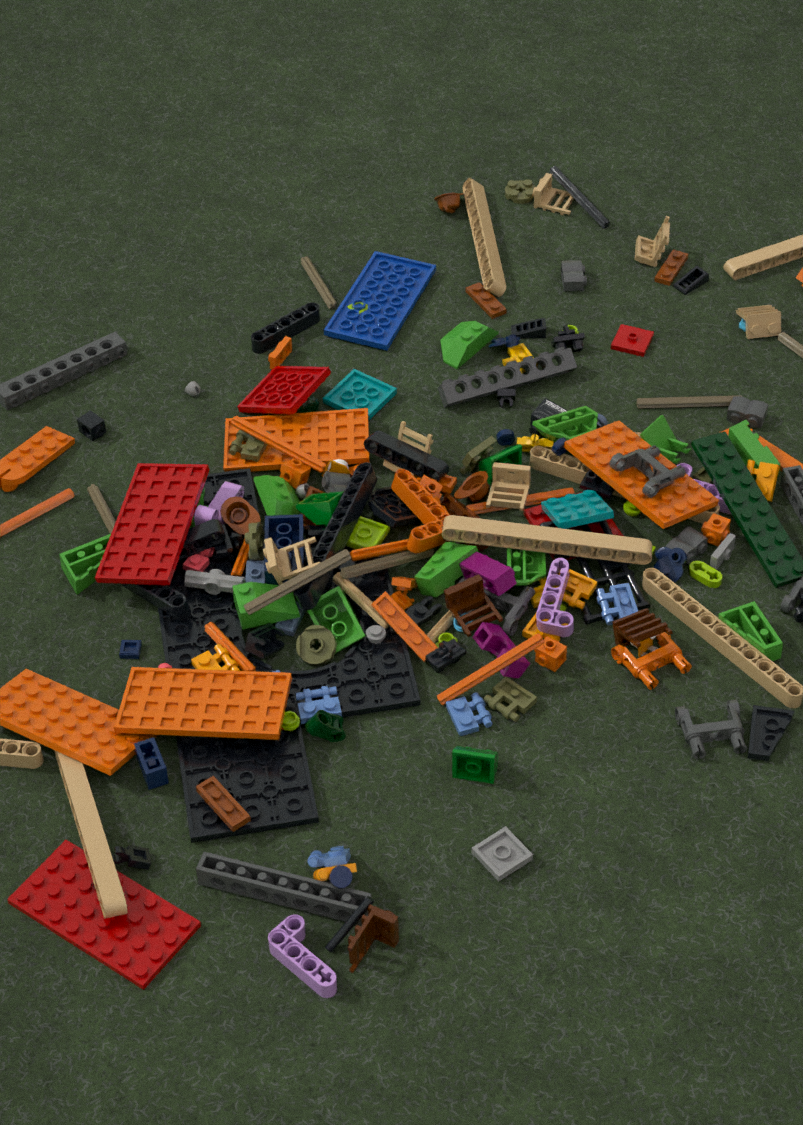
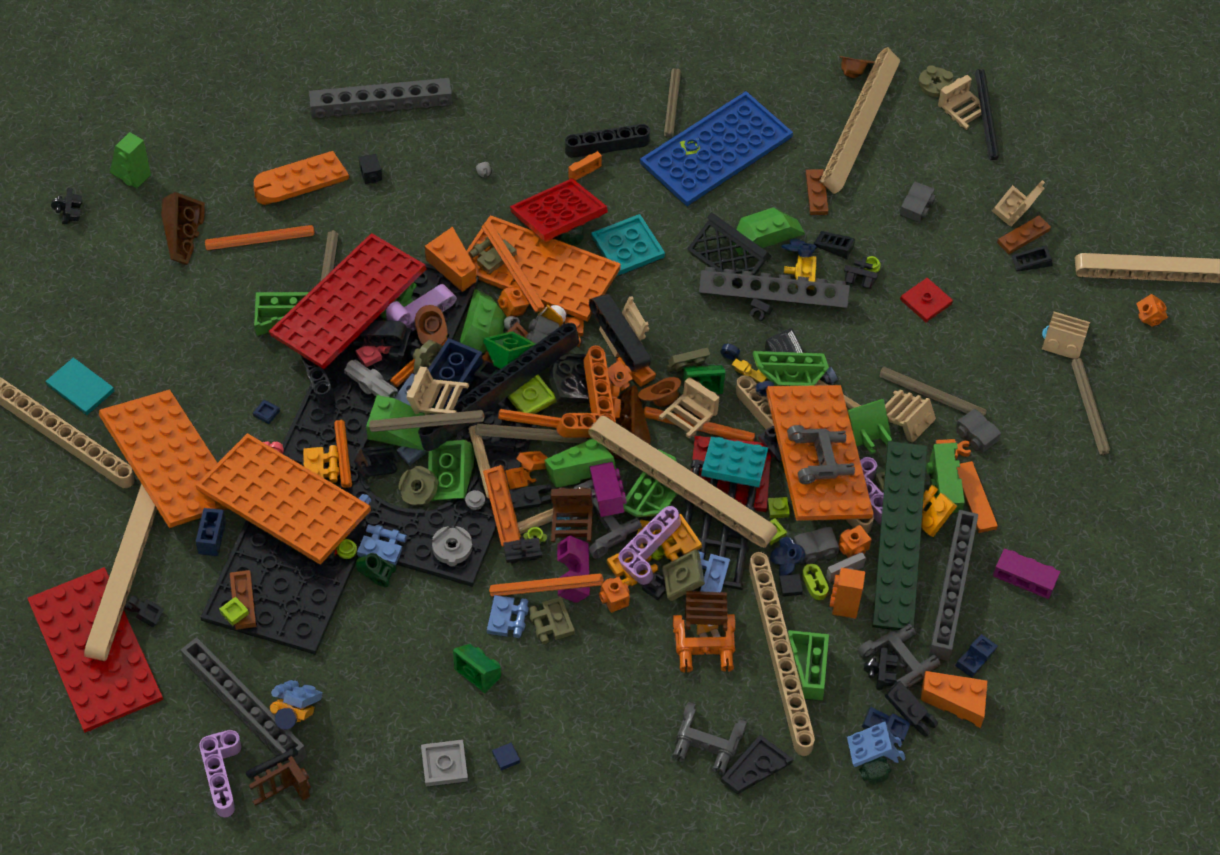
camera: 25 degrees right, 10 degrees up
(222, 460) = (451, 259): none -> orange wedge
(225, 813) = (234, 611): none -> lime plate
(382, 686) = (454, 555): none -> light grey plate
(447, 350) = (734, 236): none -> black fence
(551, 824) = (506, 756): none -> dark blue tile
(579, 635) = (656, 587): none -> black tile
(599, 611) = (683, 575): none -> olive plate
(633, 530) = (778, 507): none -> lime plate
(688, 584) = (790, 585): none -> black tile
(691, 421) = (914, 417): none -> tan plate
(744, 563) = (847, 592): none -> orange wedge

